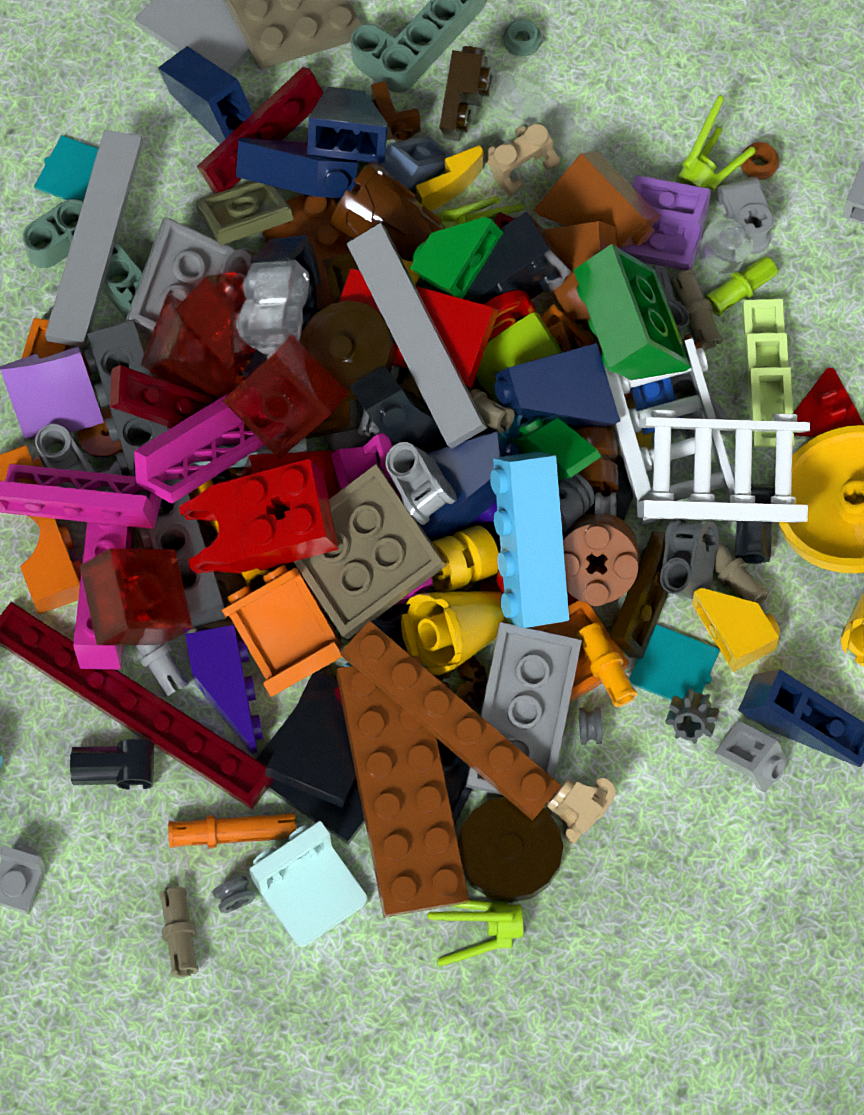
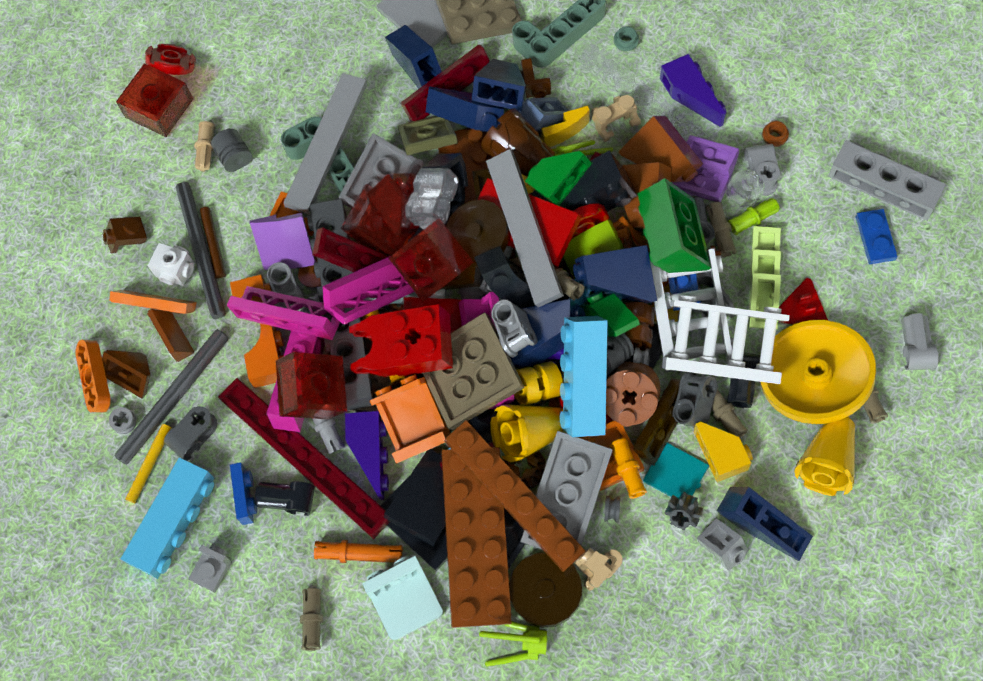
camera: 15 degrees right, 0 degrees up
(55, 783) = (244, 504): none -> blue plate
(67, 169) = (317, 97): teal piece -> none
(233, 894) = (352, 597): dark grey bush -> none
(466, 85) = (582, 65): dark brown plate -> none
(624, 103) = (687, 86): none -> dark purple slope
(699, 169) = (733, 134): lime plant -> none

